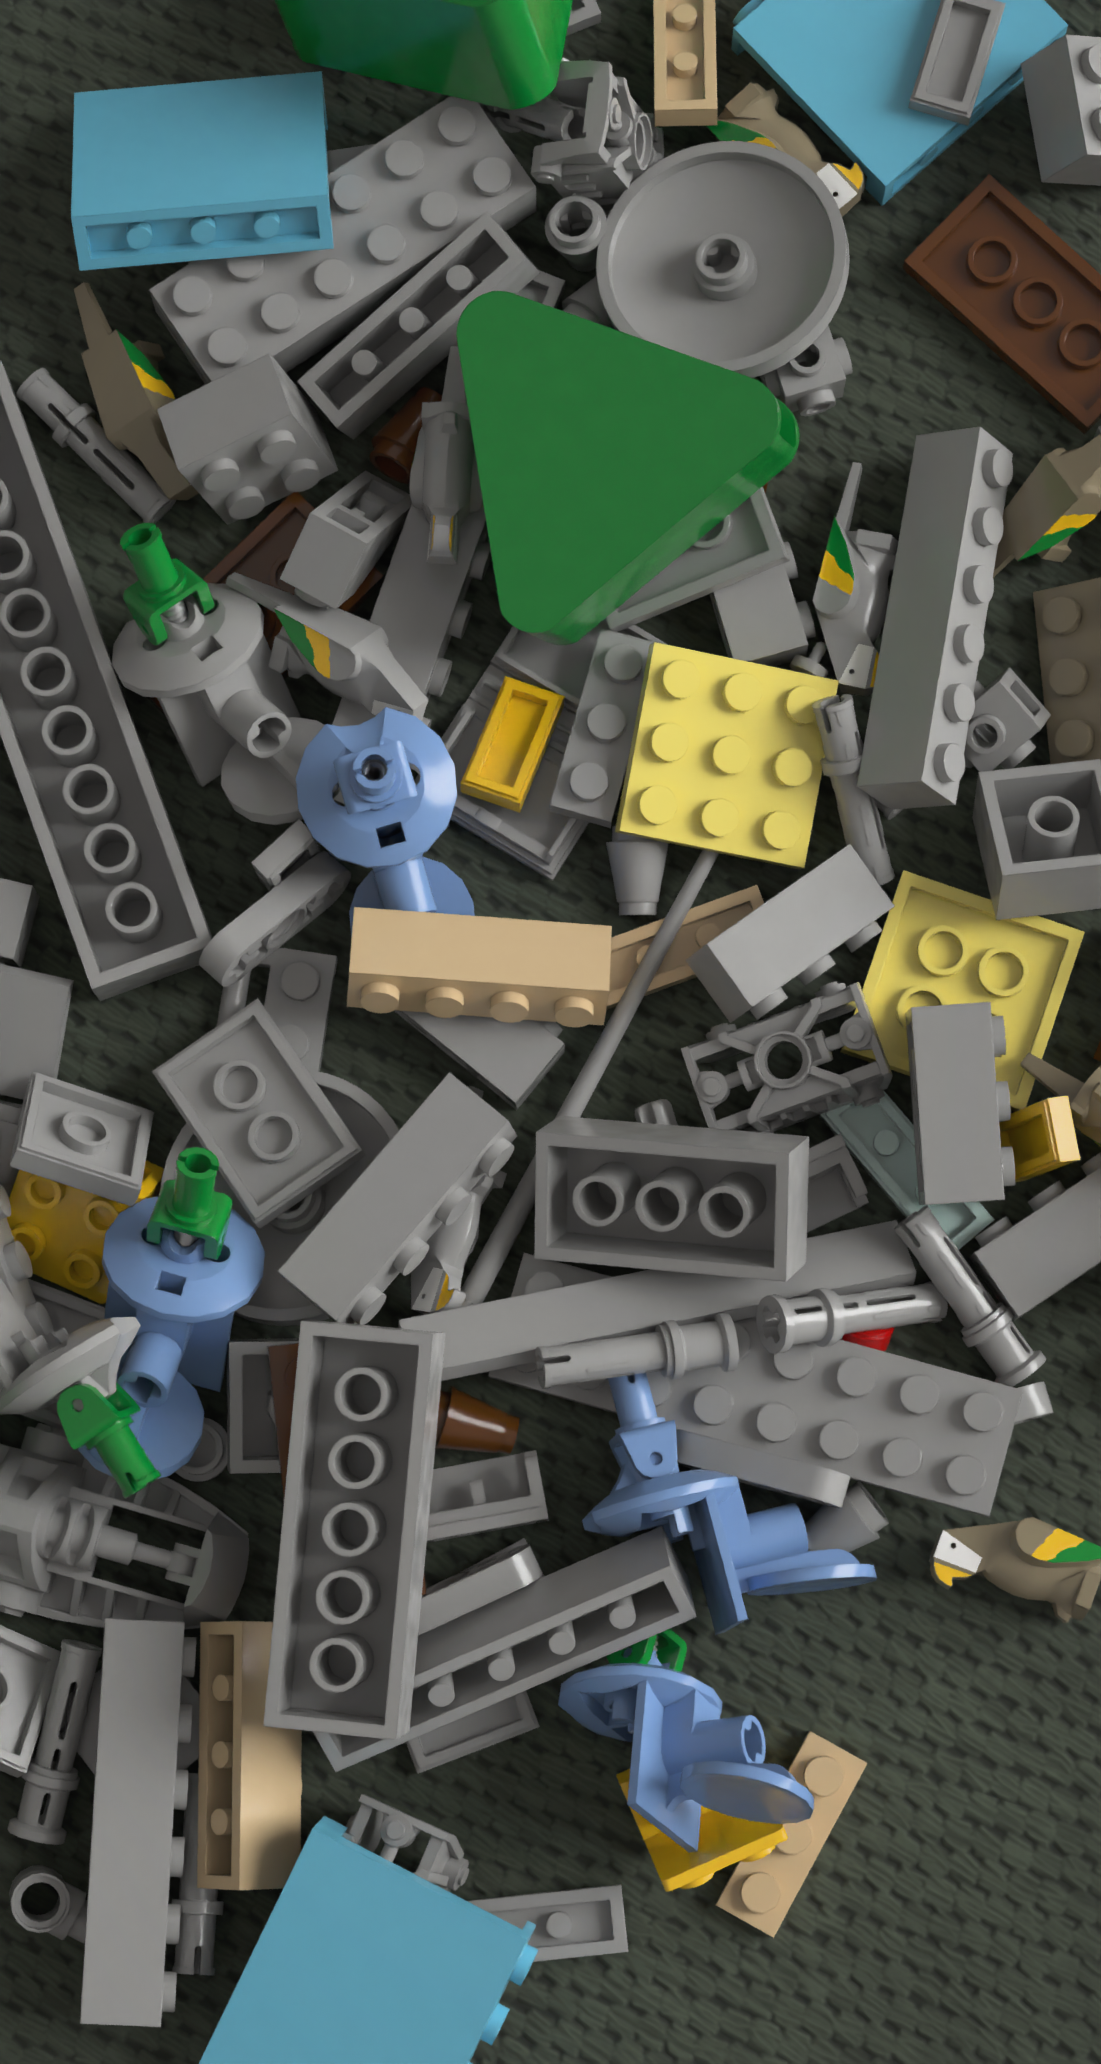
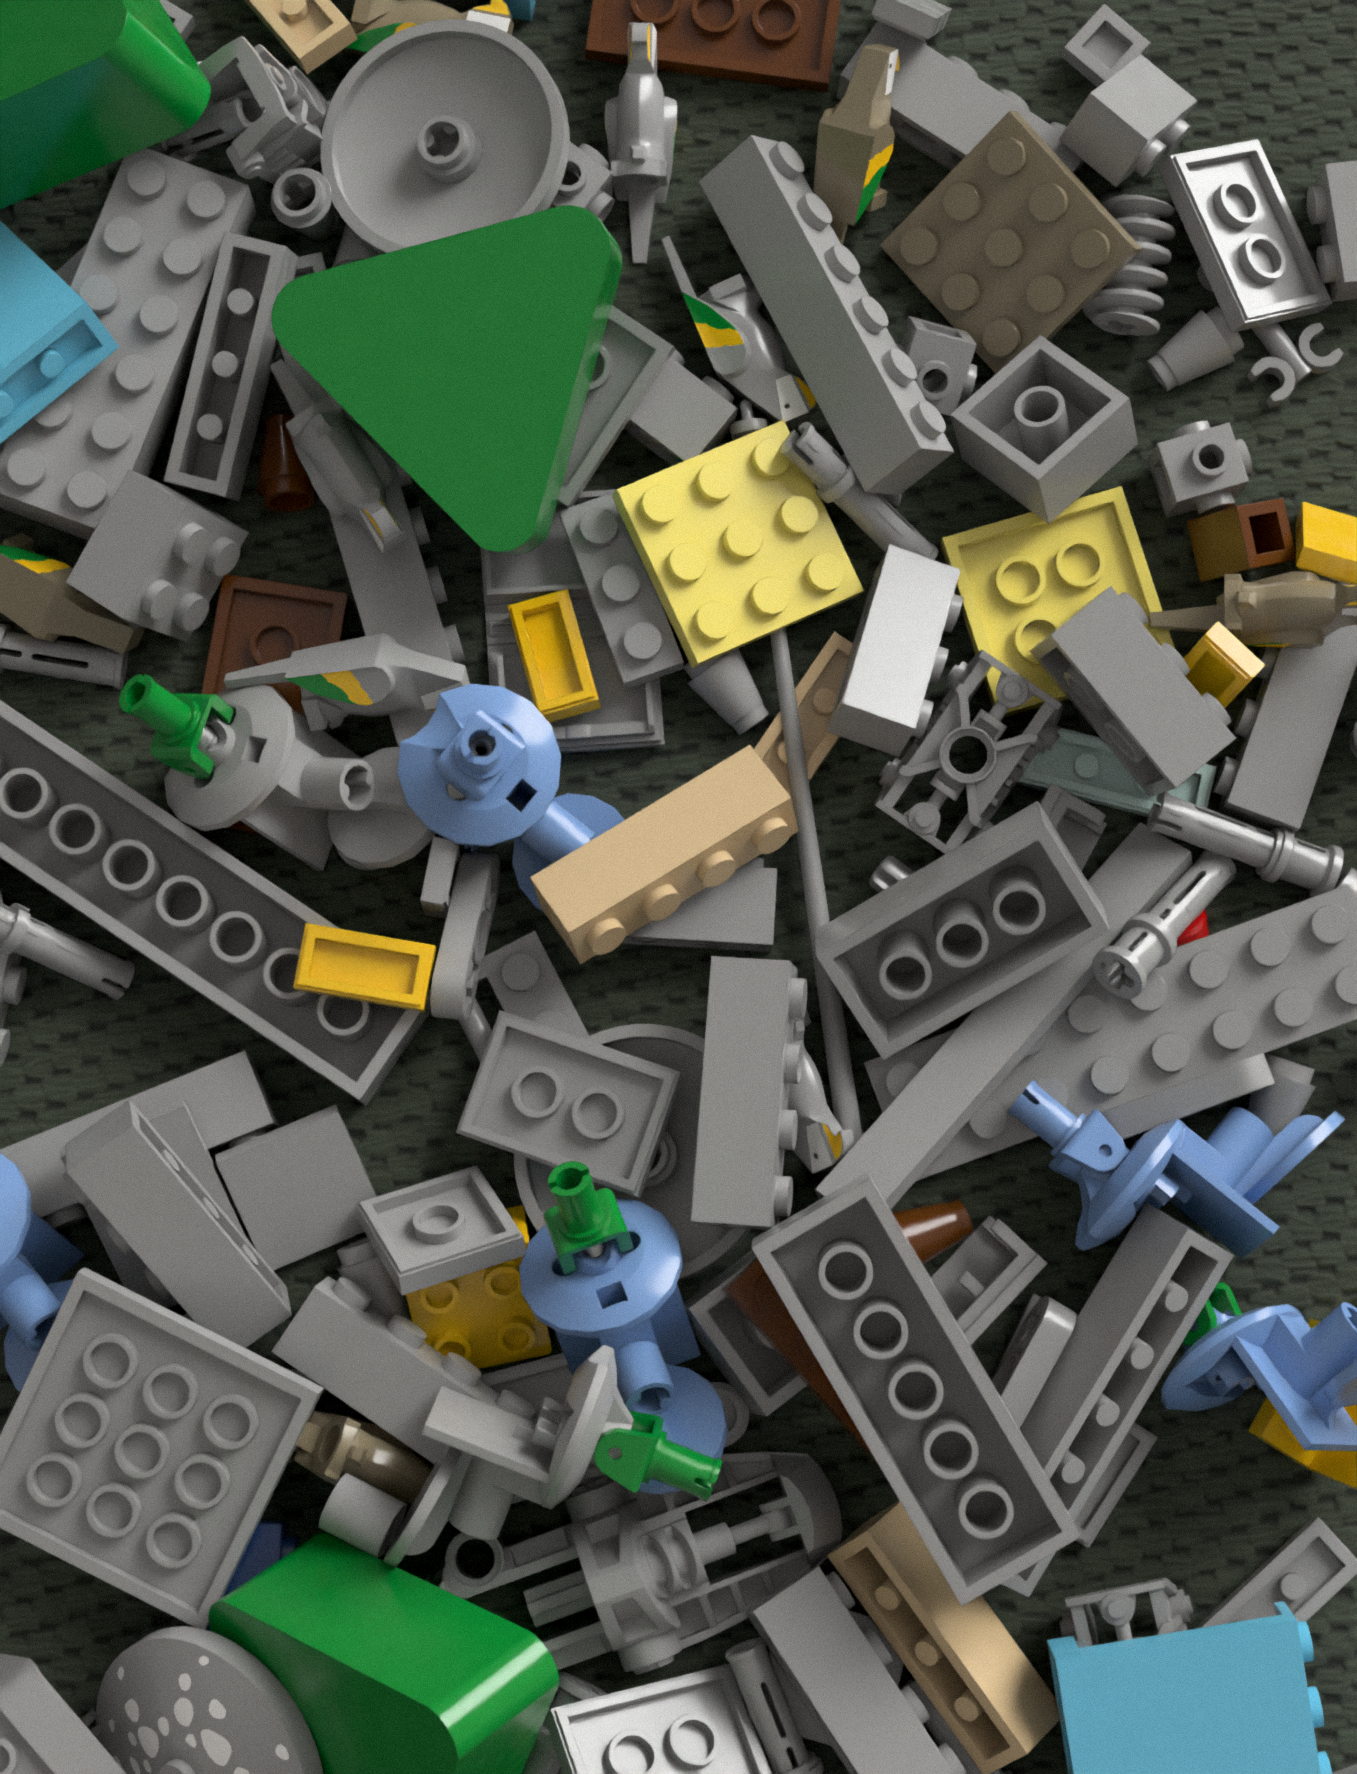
camera: 45 degrees left, 0 degrees up
(171, 886) = (364, 967): none -> yellow tile
(345, 540) = (300, 584): light grey slope -> none
(666, 1350) = (1048, 1056): light grey pin -> none
(898, 365) = (641, 137): none -> light grey animal

